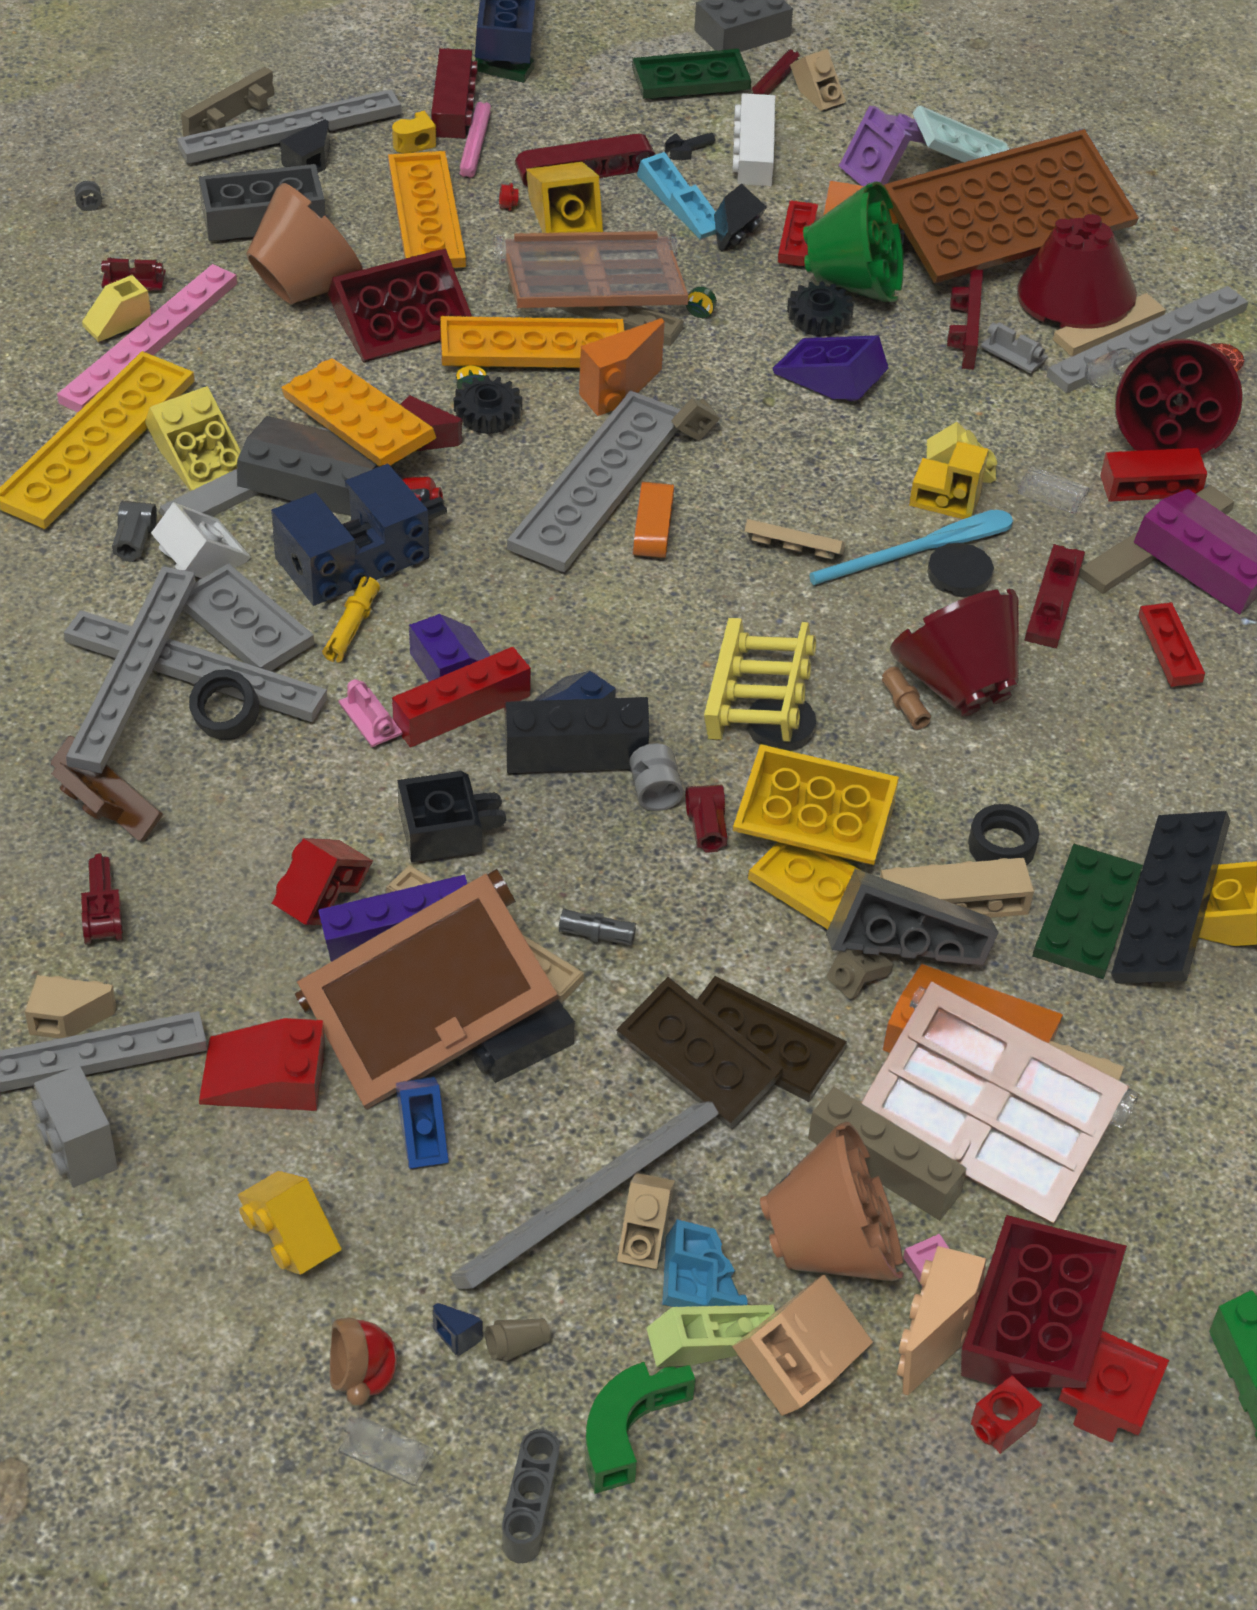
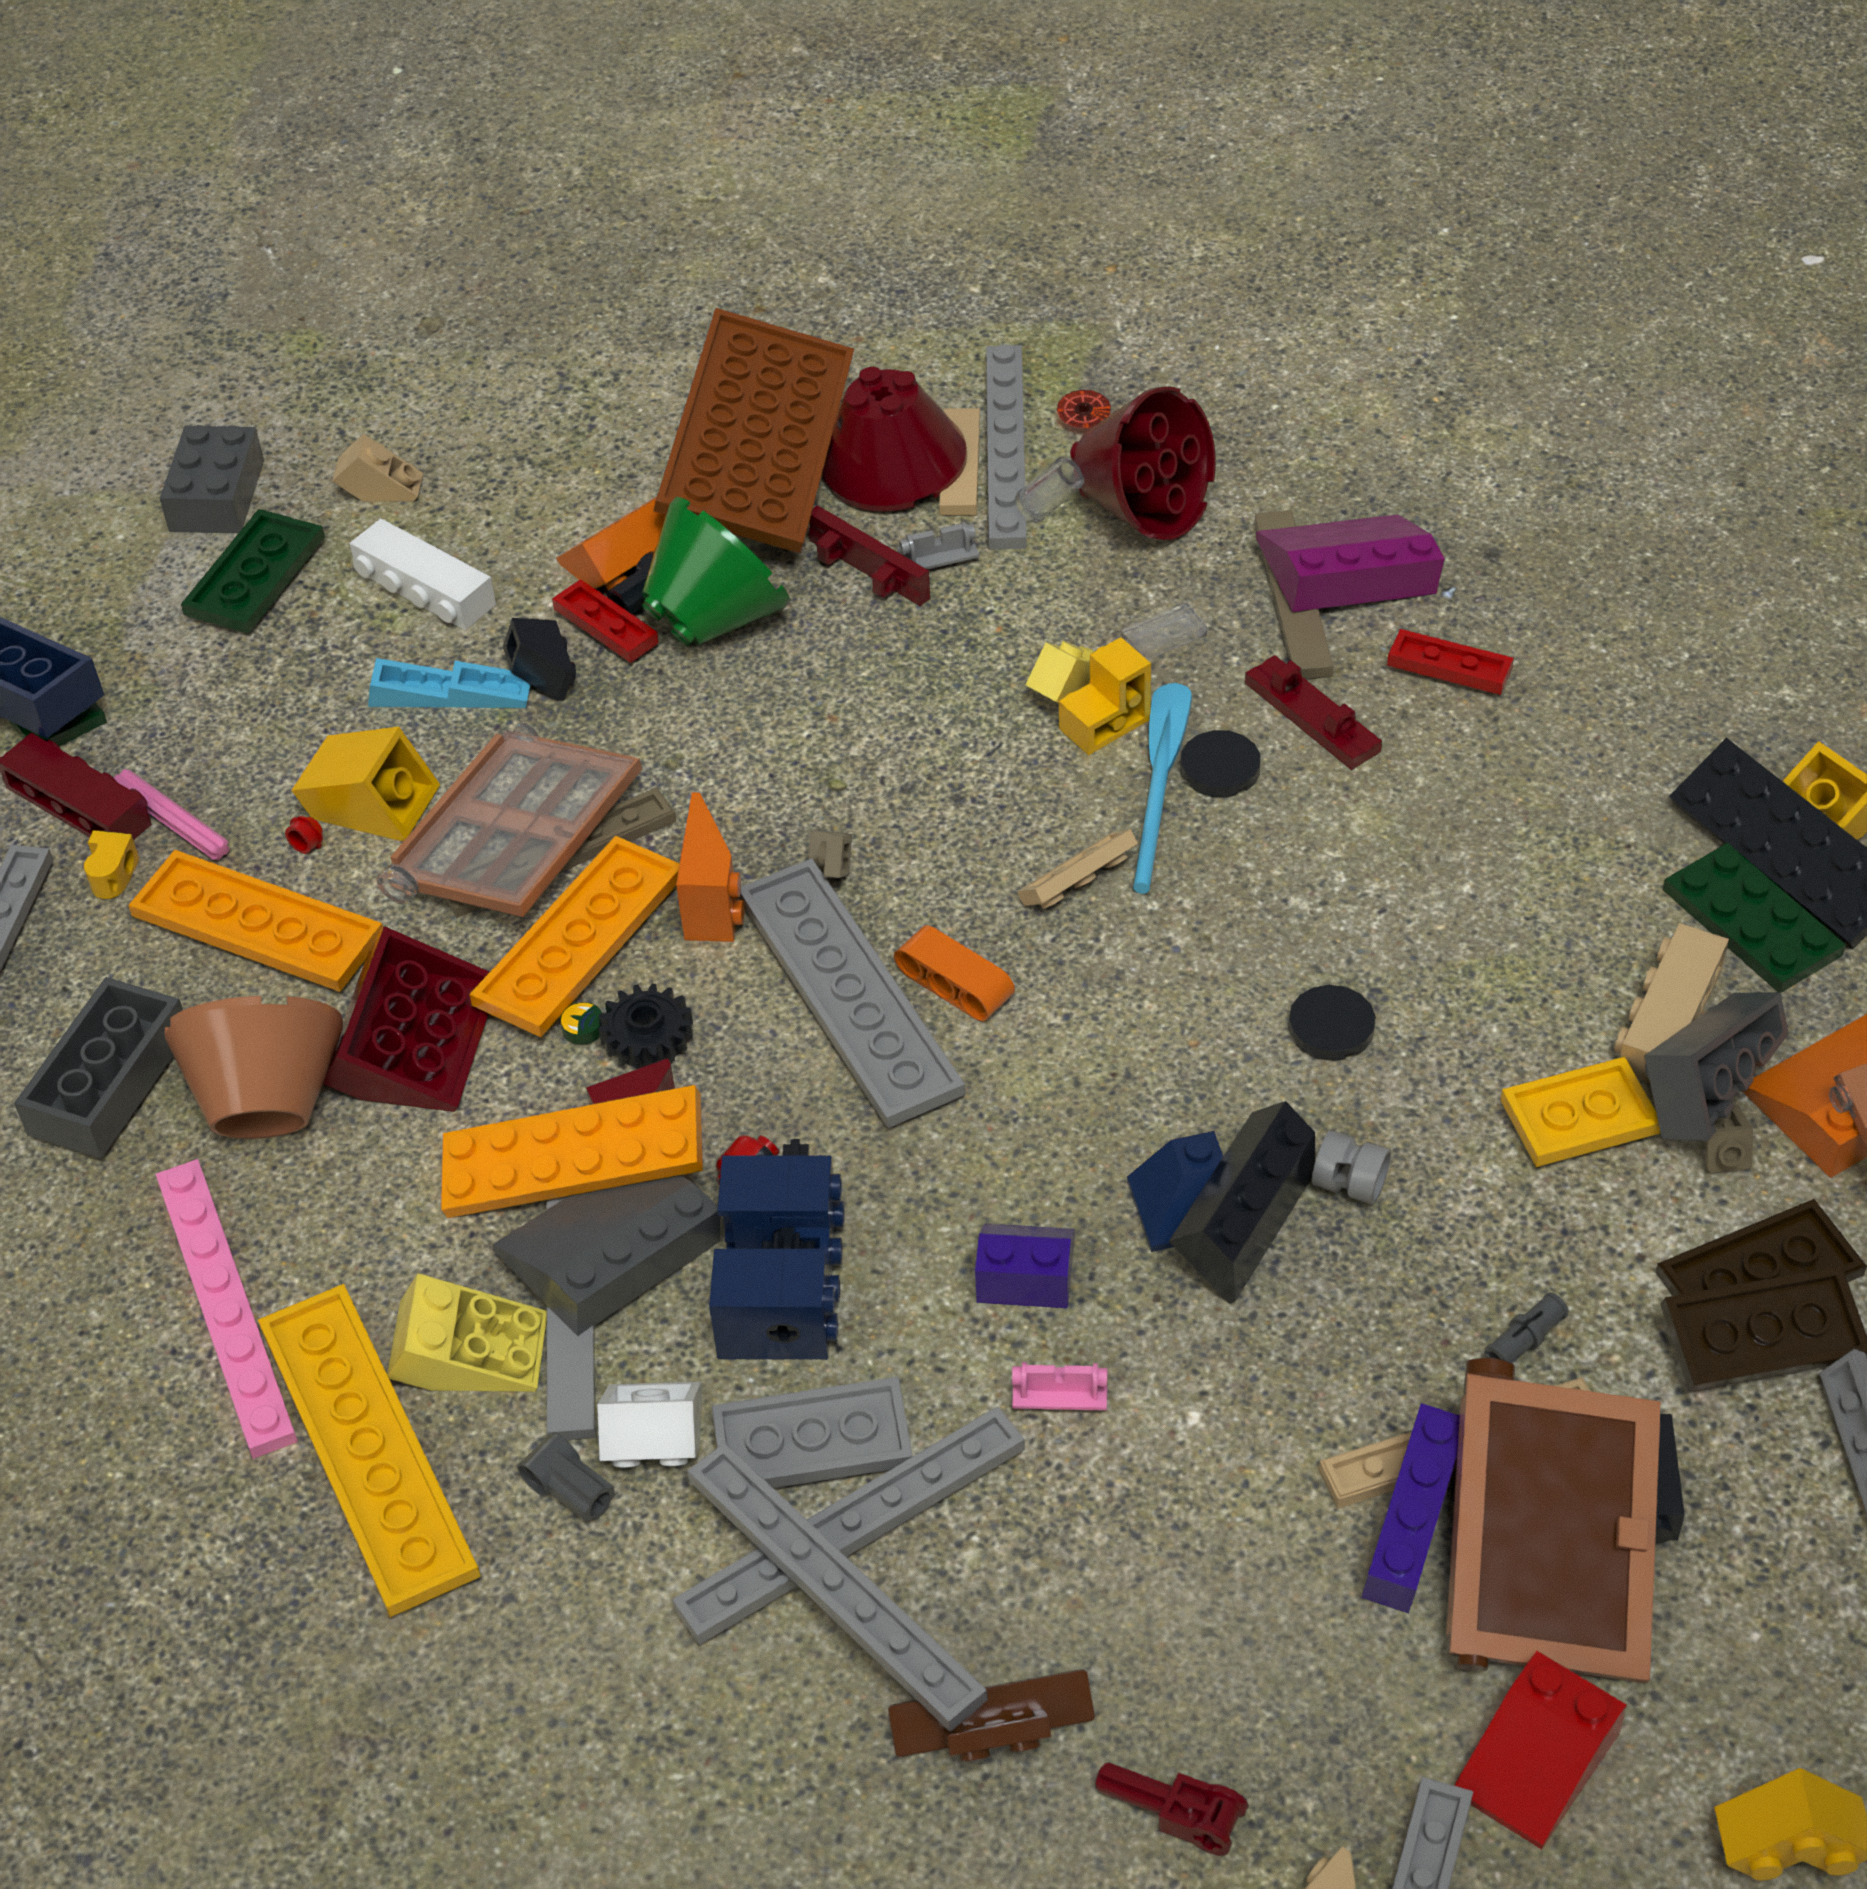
camera: 50 degrees left, 0 degrees up
(118, 309) = (161, 1309): light yellow slope -> none
(147, 272) = (101, 1267): dark red hinge -> none
(213, 682) = (982, 1499): black tyre -> none
(307, 146) = (41, 978): black slope -> none
(317, 876) = (1310, 1553): red brick -> none
(356, 610) = (880, 1315): yellow pin -> none
(422, 1122) = (1711, 1630): blue slope -> none
(445, 816) = (1281, 1390): black hinge -> none
(461, 696) = (1104, 1281): red brick -> none
(604, 156) = (324, 712): dark red beam -> none
(682, 149) = (374, 644): black bar -> none
(701, 302) = (649, 752): tile -> none
(707, 809) = (1418, 1147): dark red piece -> none
(731, 665) = (1263, 1042): light yellow fence -> none
(776, 73) = (324, 504): dark red axle -> none
(817, 804) = (1497, 1051): yellow slope -> none
(820, 309) = (743, 665): black gear -> none
(835, 365) = (841, 700): dark purple slope -> none
(879, 146) = (558, 475): medium lavender bracket -> none
(906, 698) = (1375, 902): medium nougat pin -> none
(954, 137) = (616, 412): light aqua tile -> none
(966, 650) = (1382, 811): dark red cone -> none
(1005, 817) = (1622, 952): black tyre -> none
(1152, 473) = (1209, 546): red brick -> none

